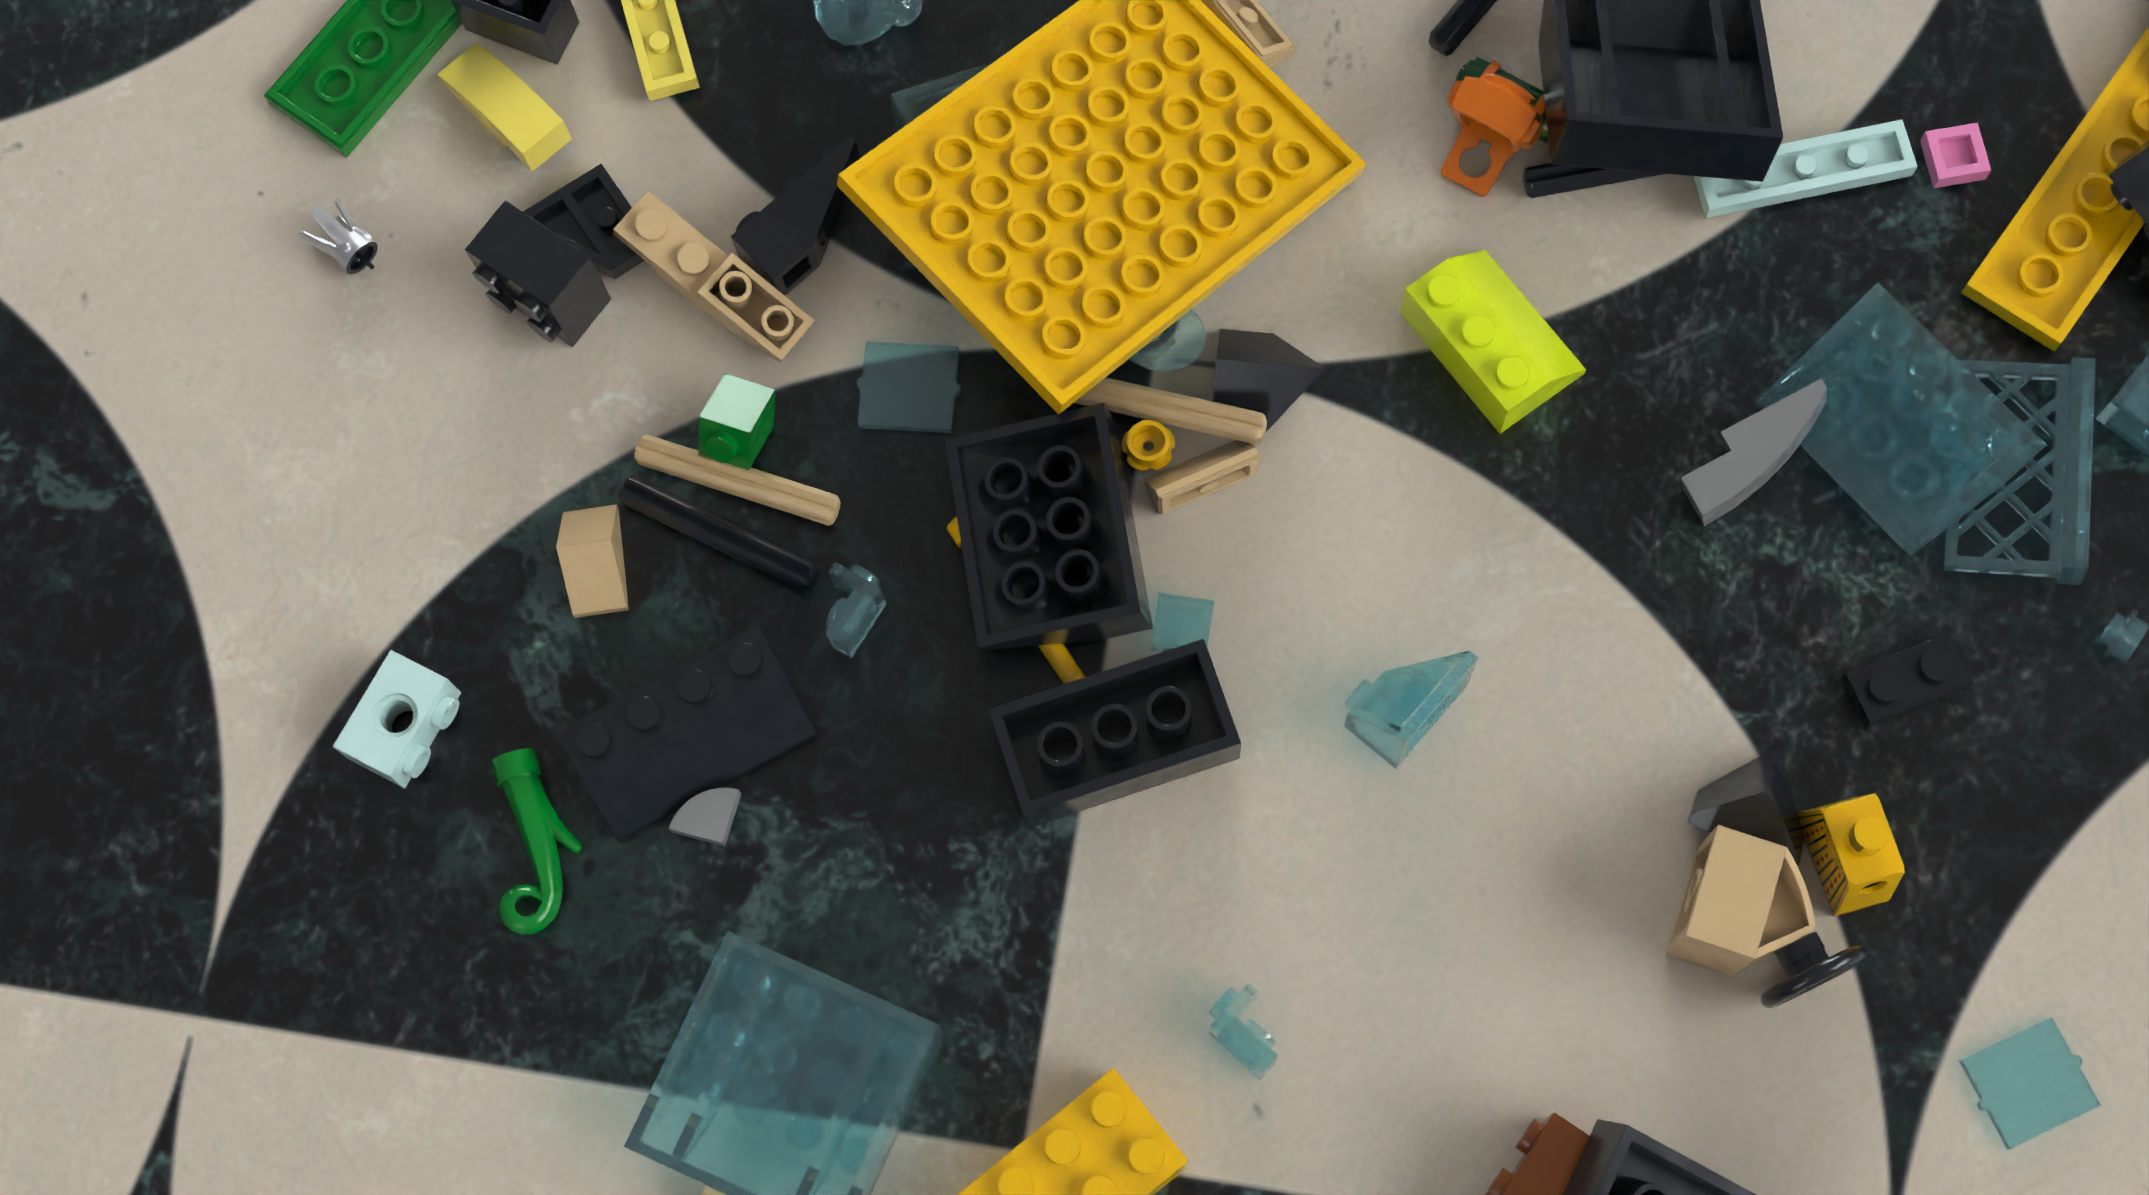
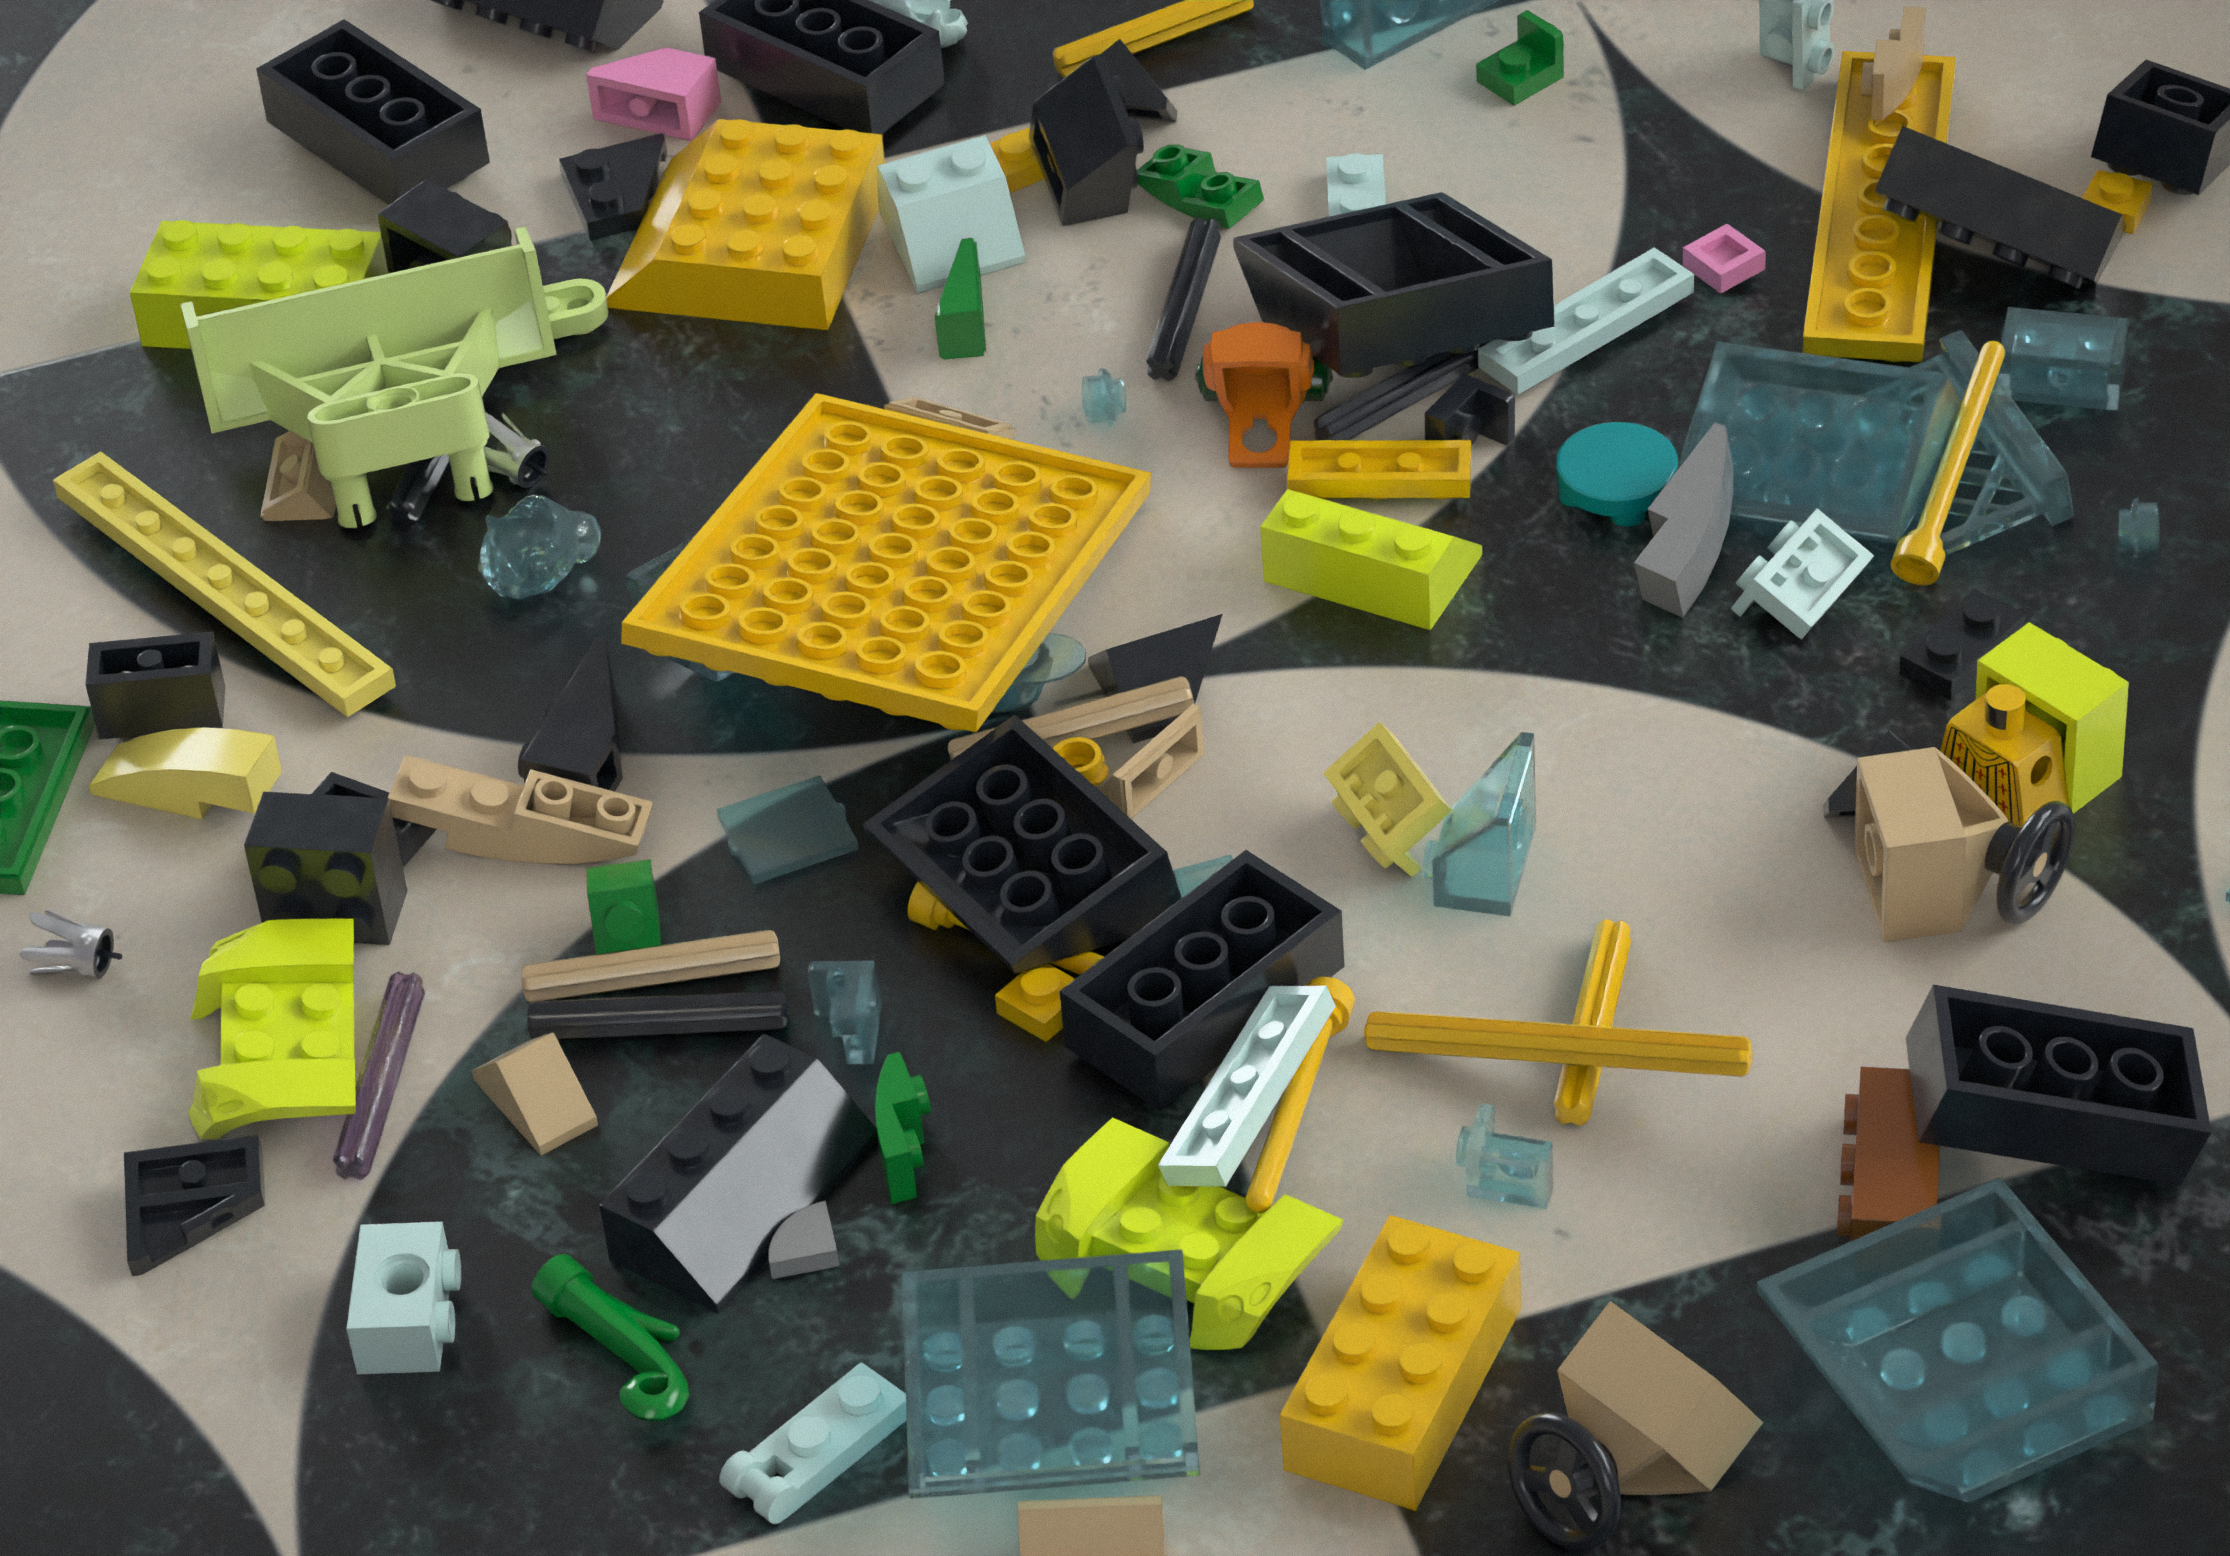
camera: 30 degrees left, 30 degrees down
(305, 533) = (188, 1195): none -> black wing
(444, 408) = (282, 1025): none -> neon yellow piece
(495, 483) = (379, 1075): none -> clear purple axle
(617, 1016) = (816, 1444): none -> light aqua plate
(829, 735) = (898, 1111): none -> green slope
(971, 970) = (1234, 1260): none -> neon yellow piece
(1000, 672) = (1034, 1000): none -> yellow plate
(1083, 871) = (1246, 1086): none -> light aqua plate
(1194, 803) = (1294, 1100): none -> yellow piece
(1345, 951) = (1559, 1043): none -> yellow axle
(1352, 623) = (1387, 796): none -> light yellow bracket
(1376, 56) = (1103, 397): none -> clear light blue plate
(1392, 921) = (1596, 1008): none -> yellow axle
(1548, 249) = (1380, 468): none -> yellow plate
(1640, 229) = (1472, 410): none -> black bracket
(1735, 348) = (1615, 470): none -> teal tile
(1817, 544) = (1805, 575): none -> light aqua bracket
(1926, 572) = (1920, 553): none -> yellow piece
(1928, 824) = (2071, 695): none -> neon yellow brick

